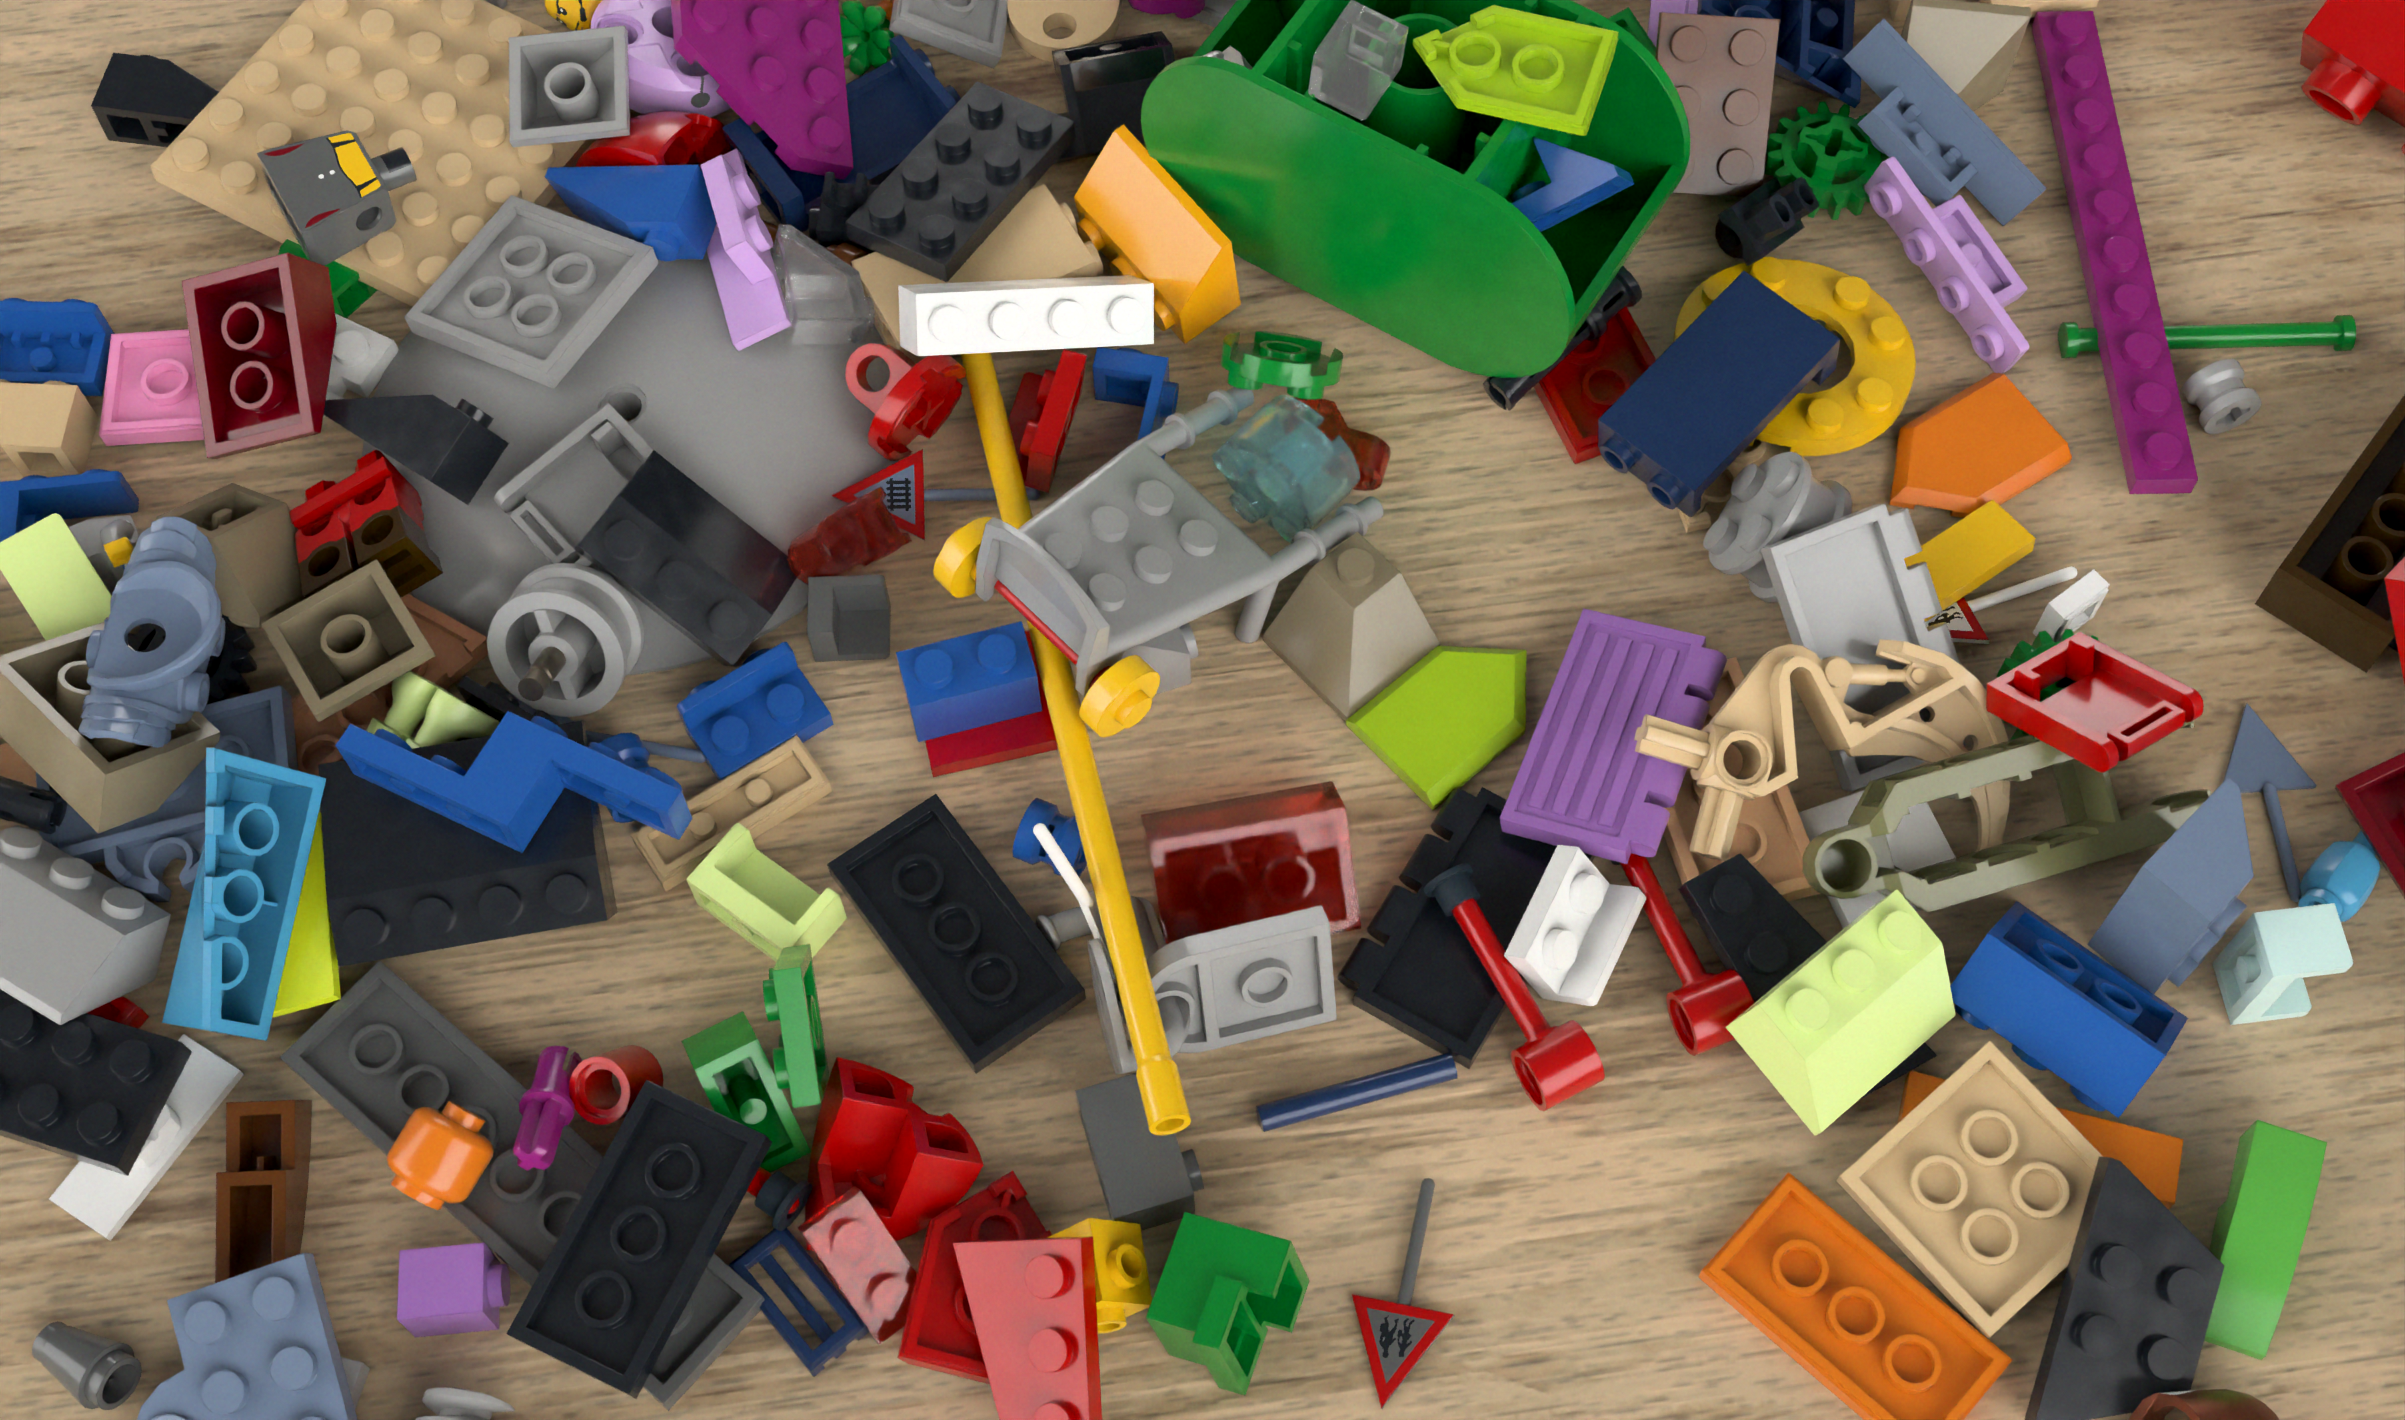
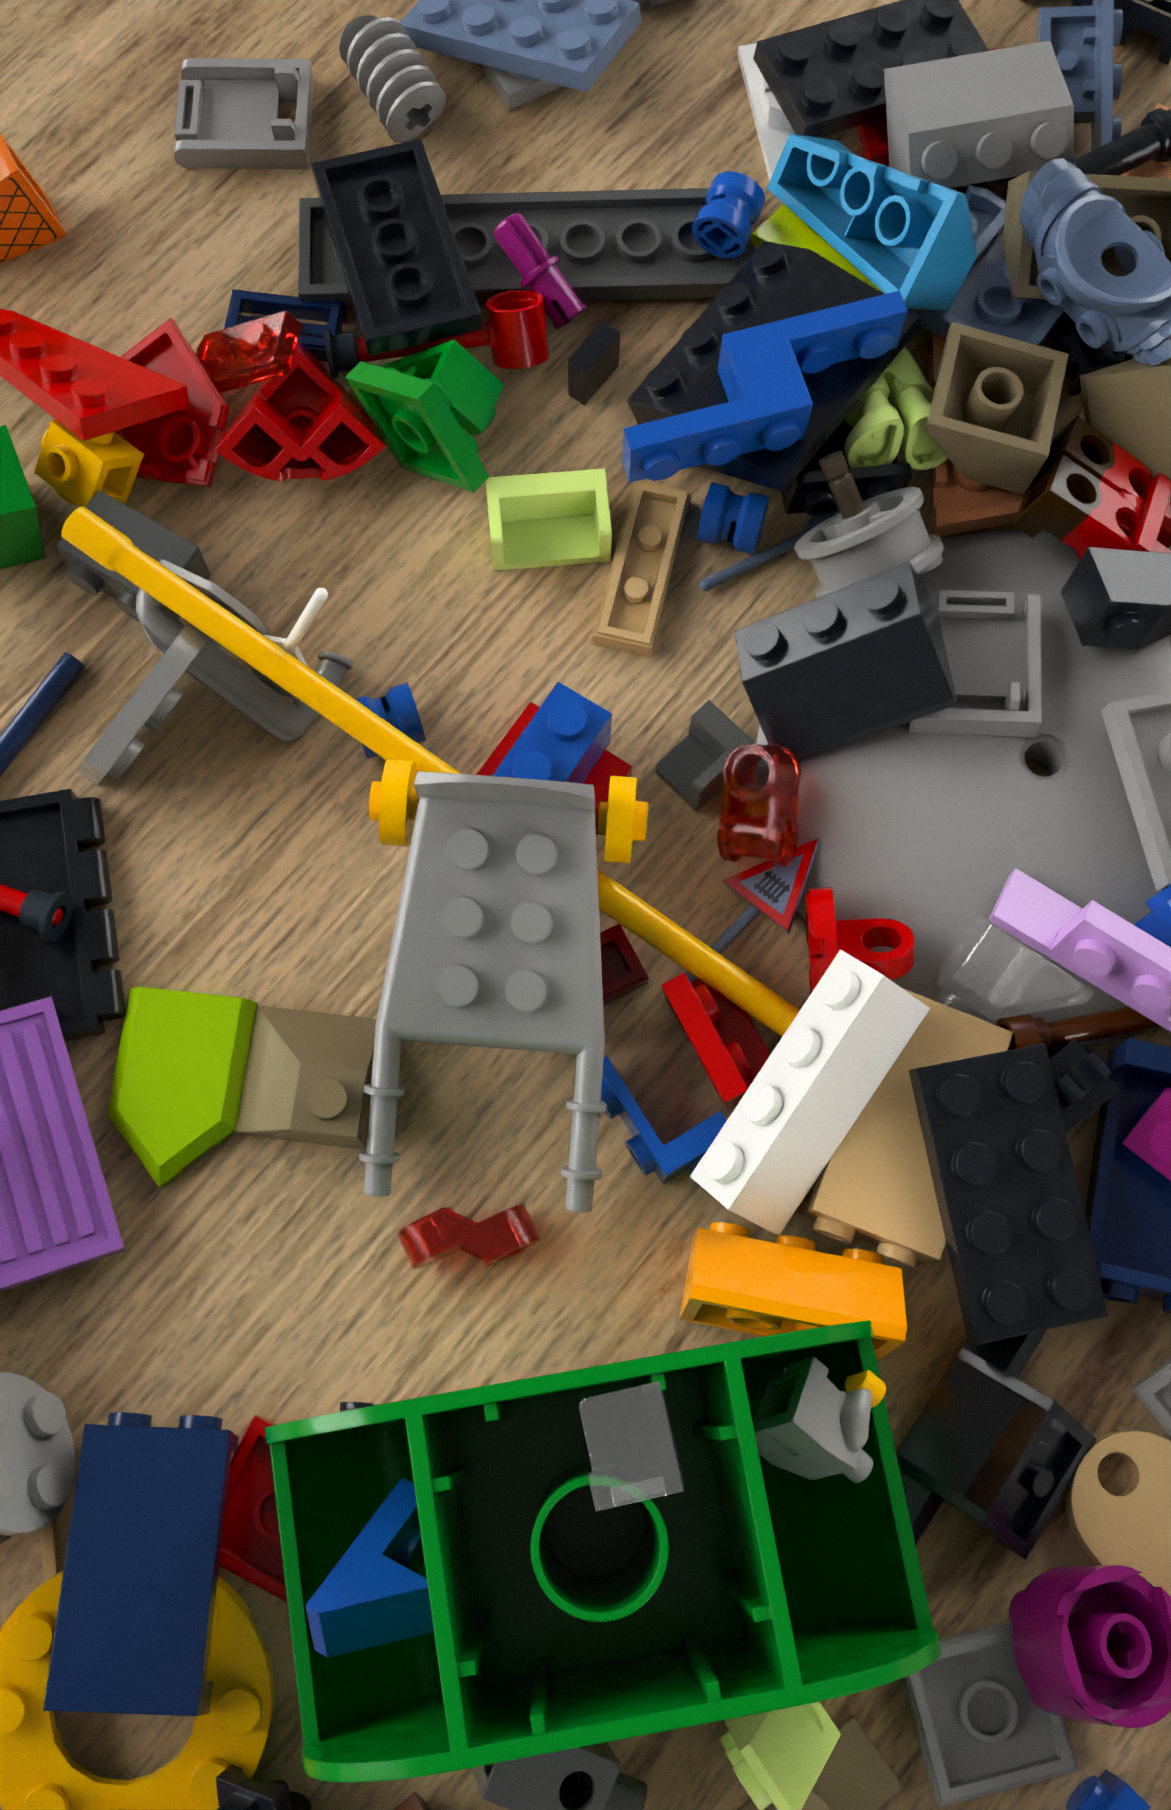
camera: 135 degrees right, 10 degrees up
(264, 1185) = (668, 121): reddish brown slope -> none
(354, 1008) = (731, 207): none -> blue wheel
(439, 1155) = (571, 191): orange head -> none
(451, 1289) = (497, 155): medium lavender brick -> none
(585, 1006) = (593, 362): none -> black tile
(752, 710) = (693, 638): blue bracket -> none
(956, 933) = (402, 605): black plate -> none
(1252, 860) = (226, 816): clear red slope -> none
(1280, 361) = (554, 1239): green plate -> none
(1286, 467) = (471, 1152): clear light blue brick -> none
(1522, 67) = (461, 1603): lime tile -> none

